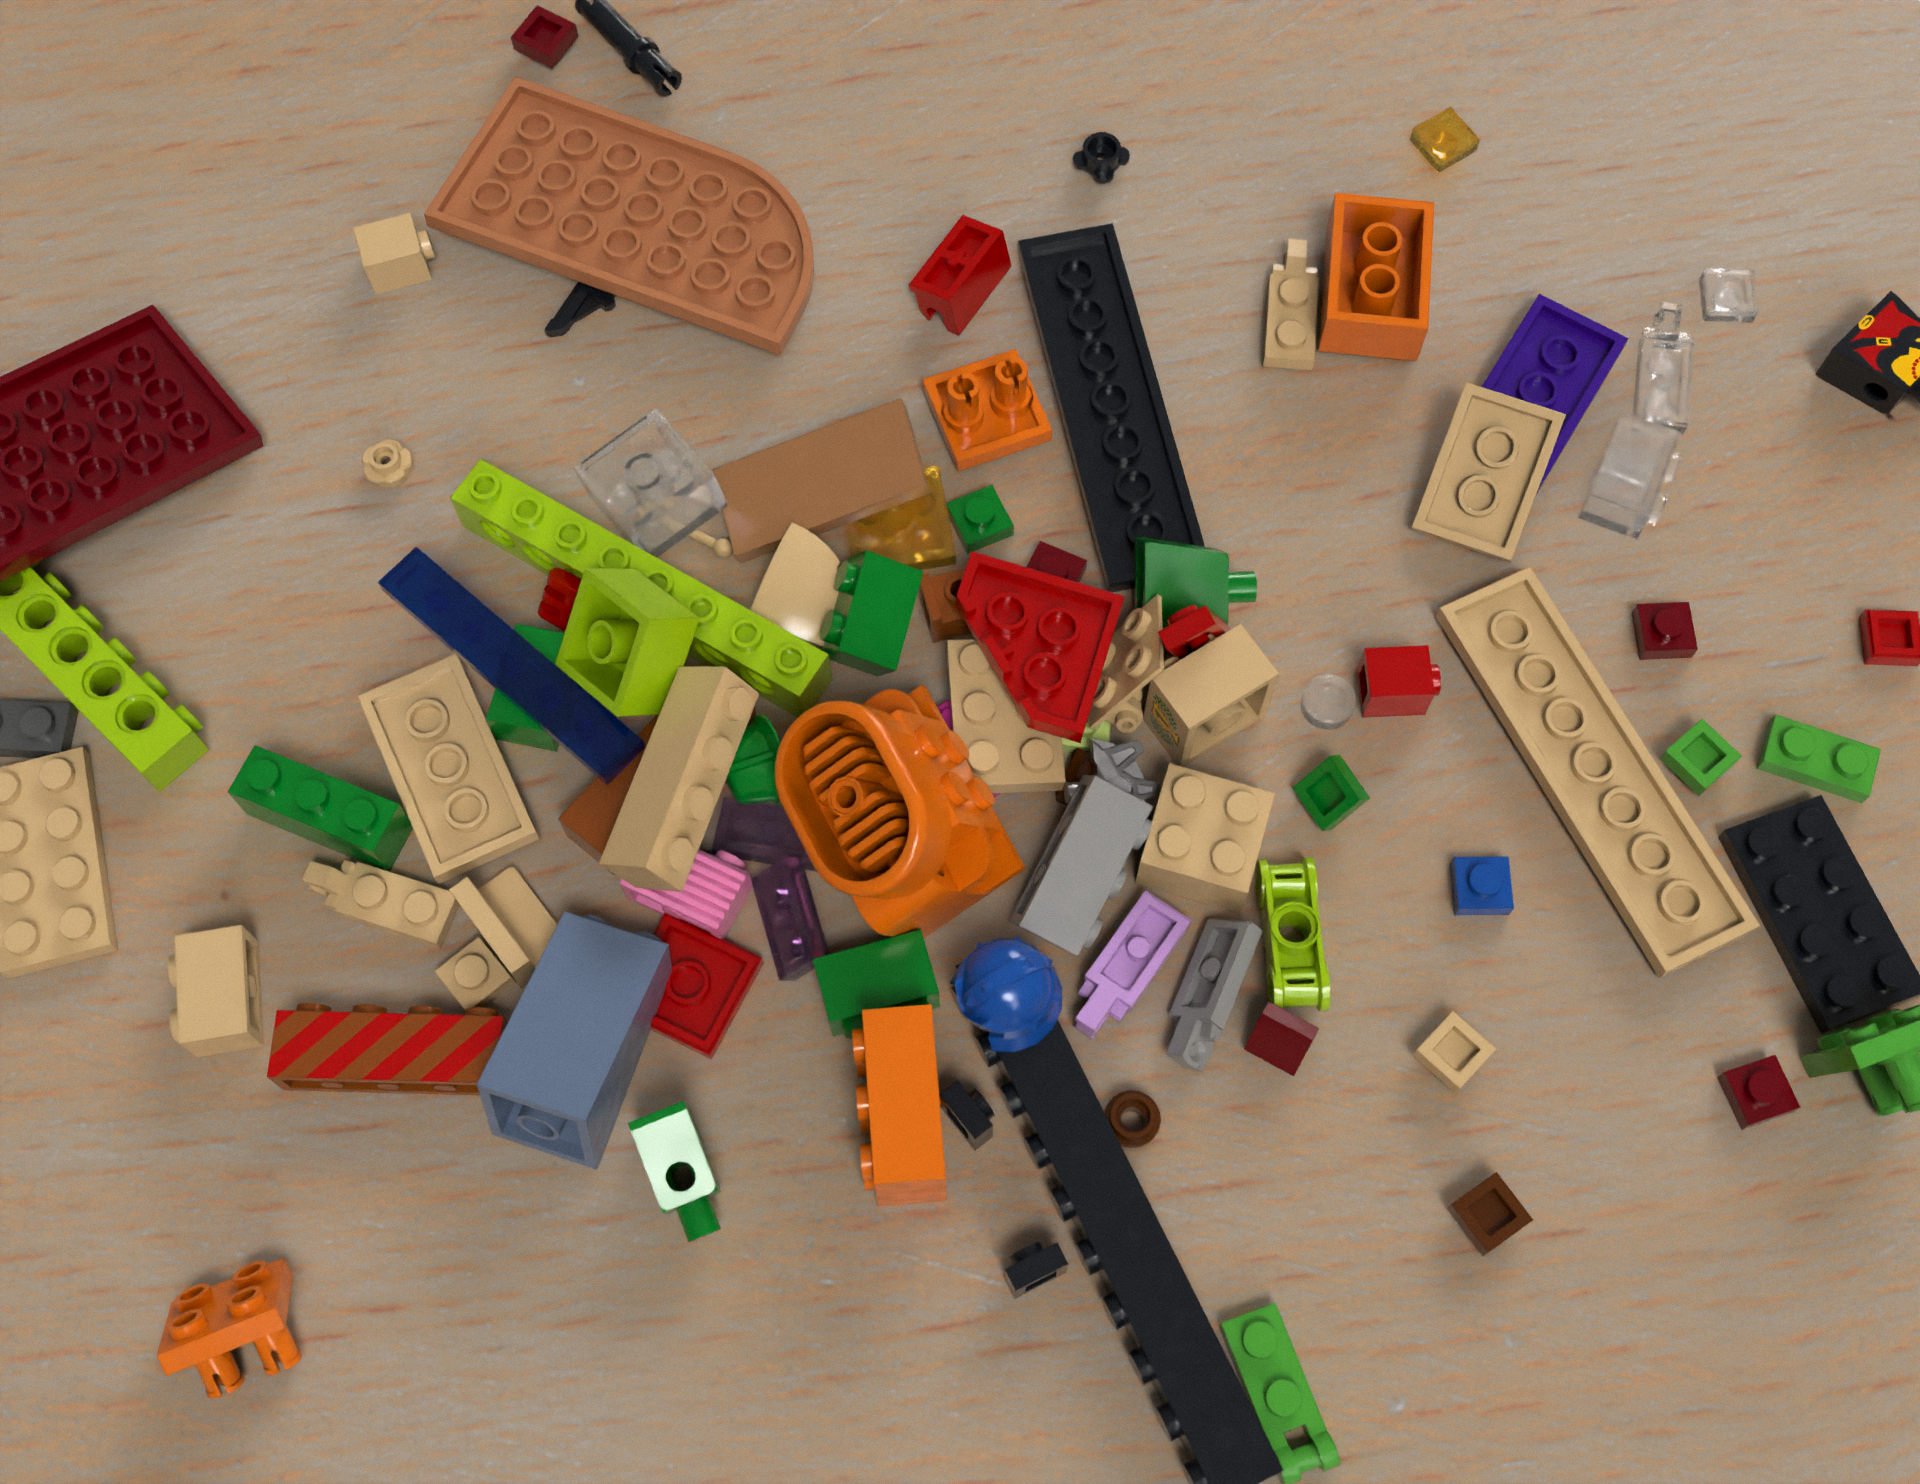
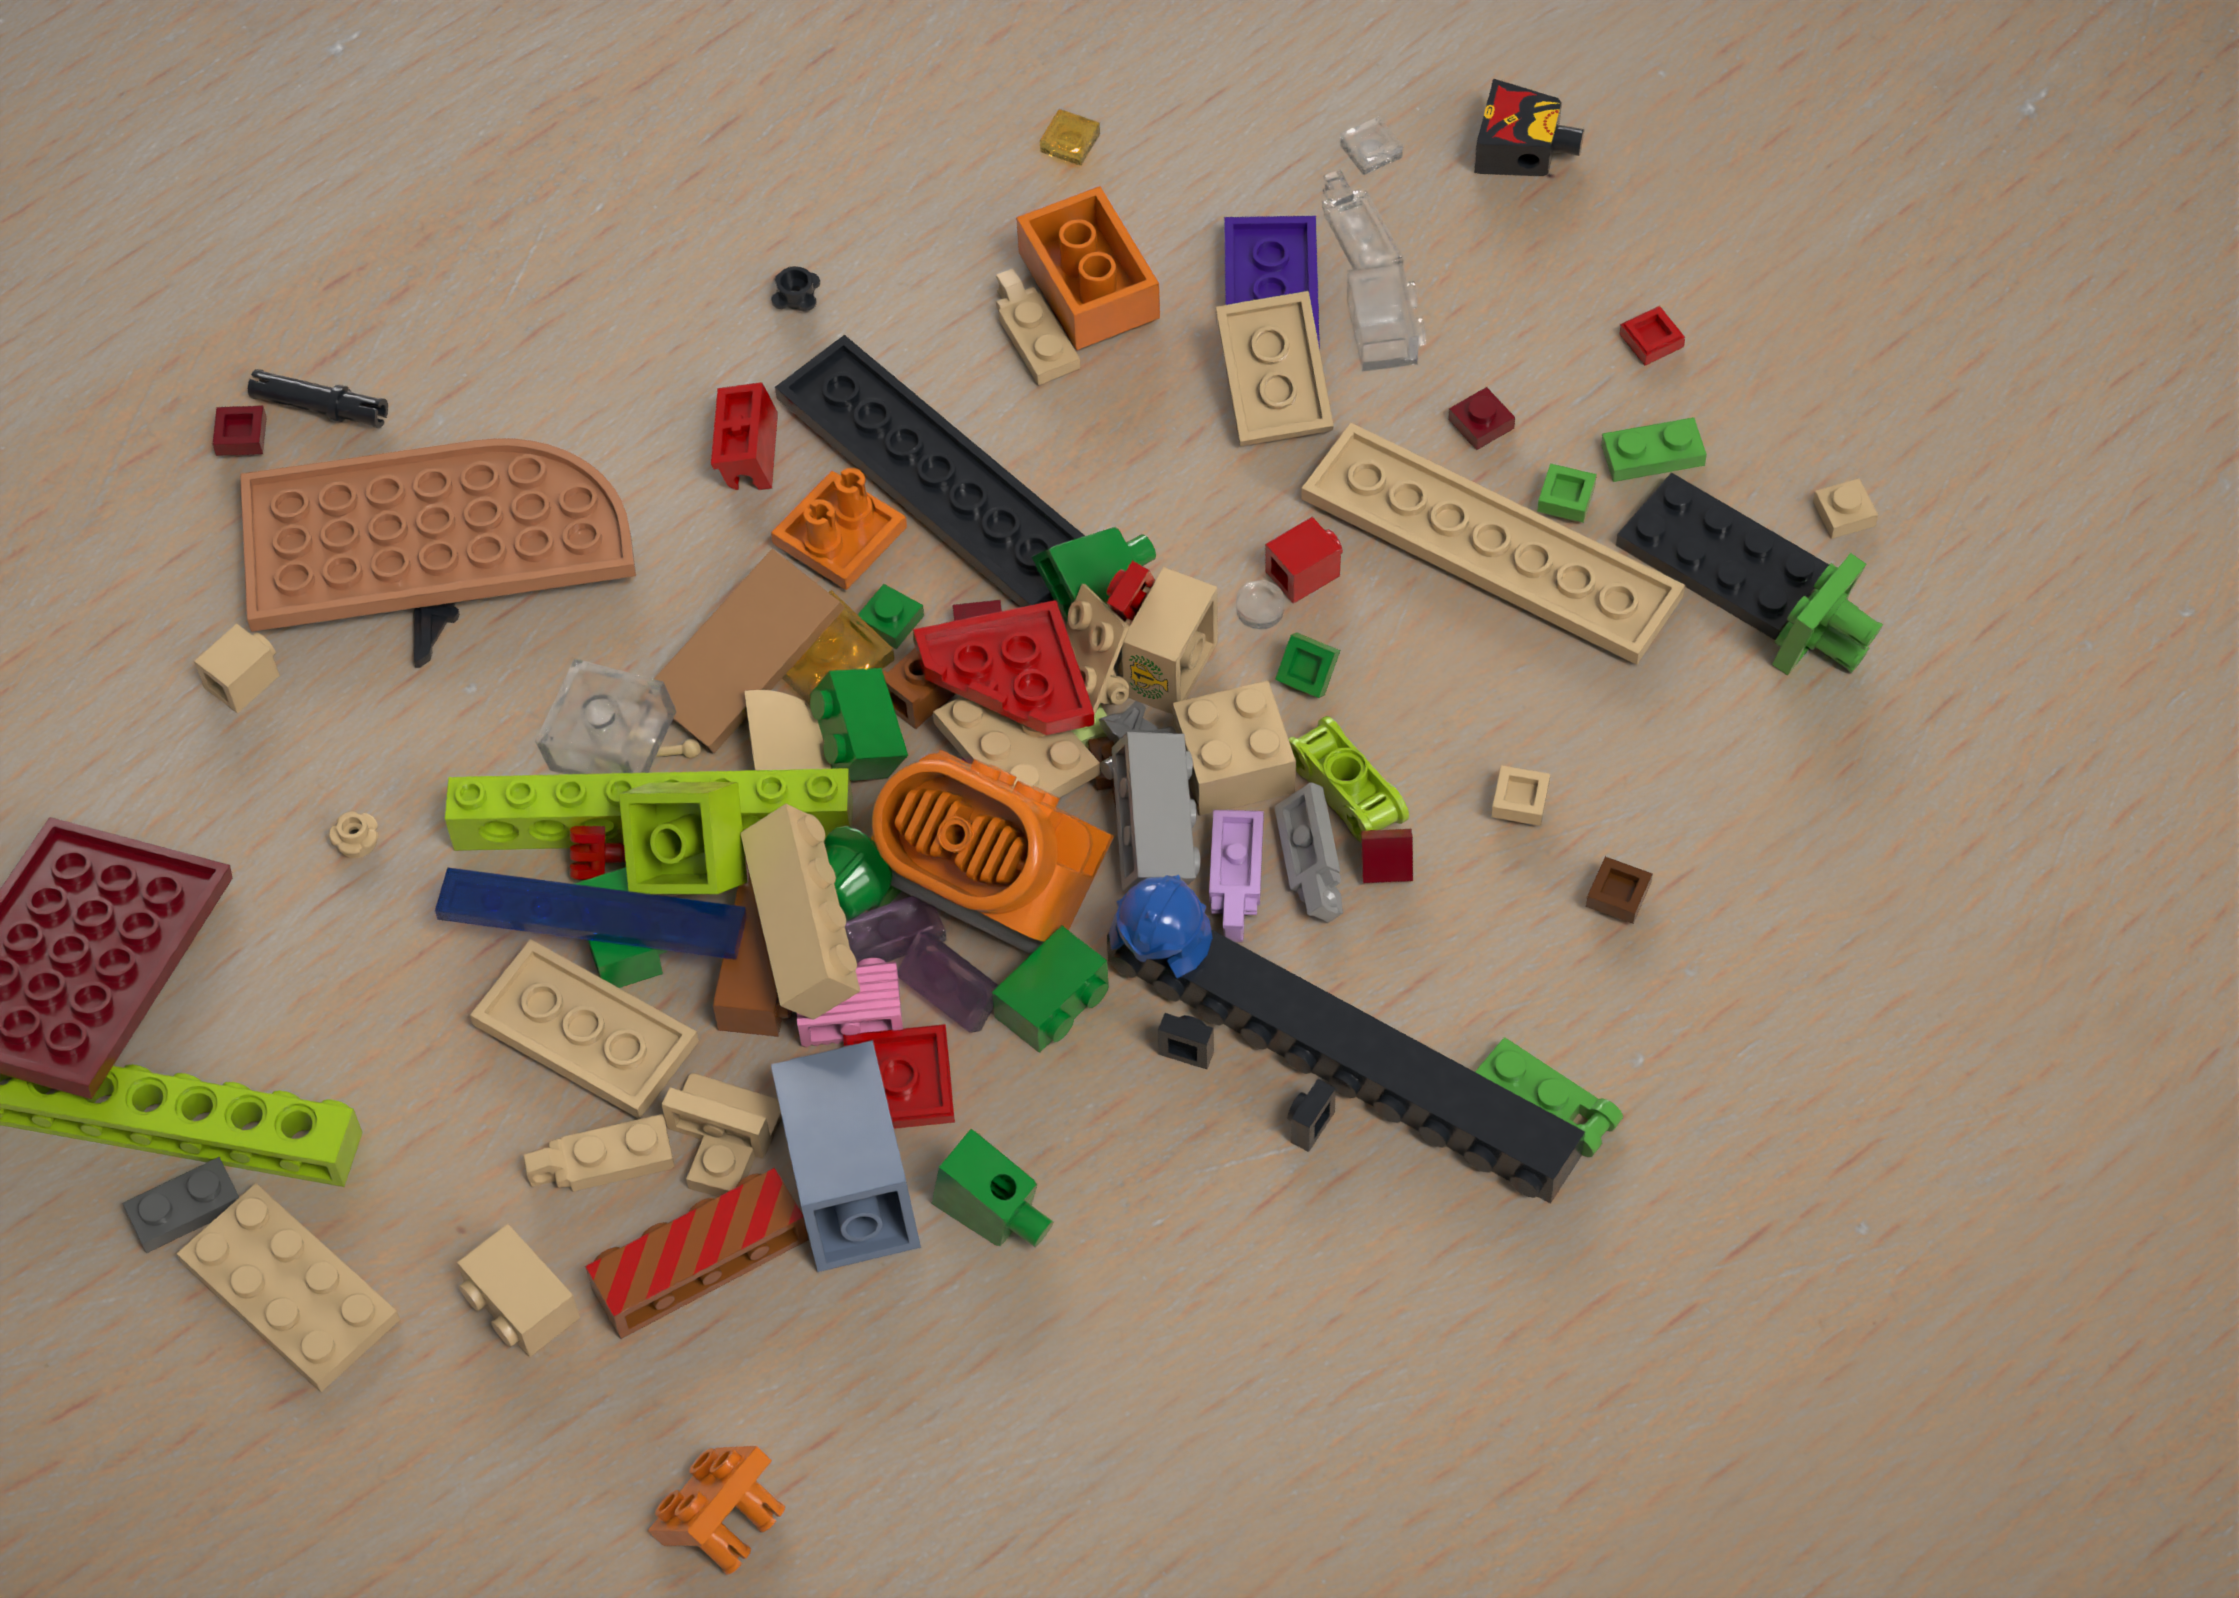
camera: 30 degrees left, 10 degrees down
(321, 808) = (502, 1112): green brick -> none
(900, 1105) = (1136, 1053): orange brick -> none
(1142, 1105) = (1316, 964): reddish brown plate -> none
(1481, 886) = (1464, 672): blue plate -> none
(1758, 1092) = (1757, 703): dark red plate -> none

